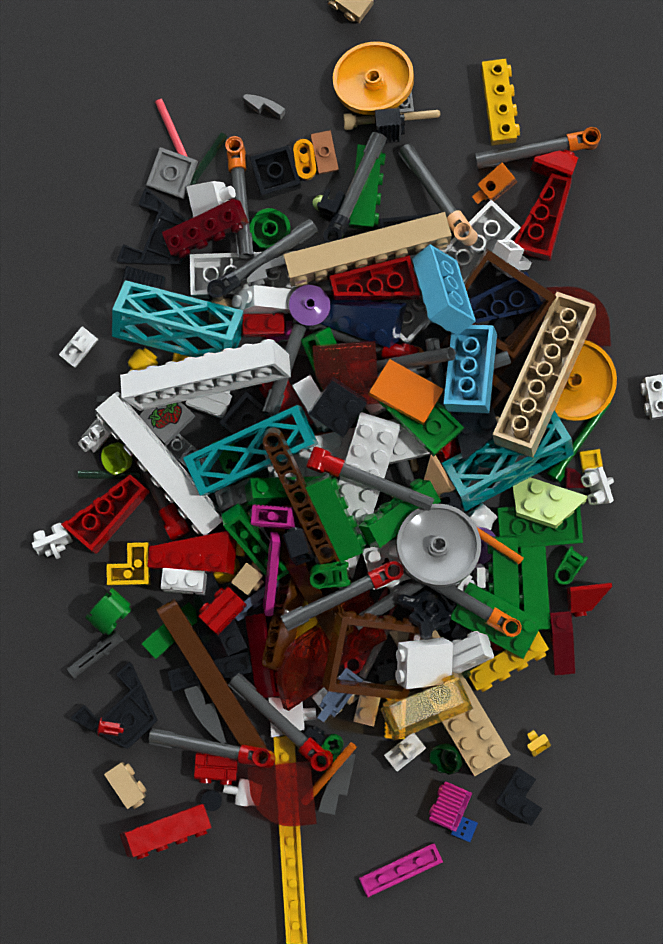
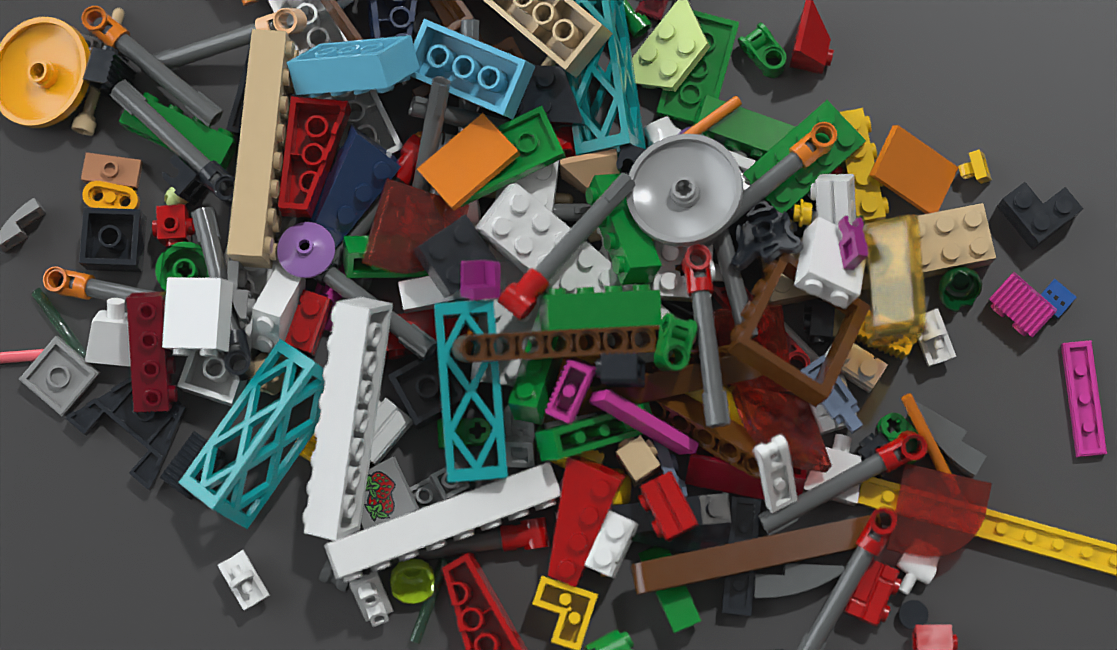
camera: 70 degrees left, 5 degrees down
(142, 359) = (293, 501): yellow head -> none
(237, 250) = (197, 316): none -> white brick
(266, 674) = (776, 473): none -> white plate
(299, 202) = (173, 224): none -> red brick
(324, 429) = (480, 279): none -> magenta panel
(415, 120) = (118, 37): none -> dark grey piece
(440, 672) = (853, 245): none -> magenta plate
(456, 632) = (802, 213): none -> yellow plate
(517, 699) = (913, 170): none -> orange tile
(534, 584) = (771, 97): green brick -> none
(562, 643) = (856, 91): dark red slope -> none

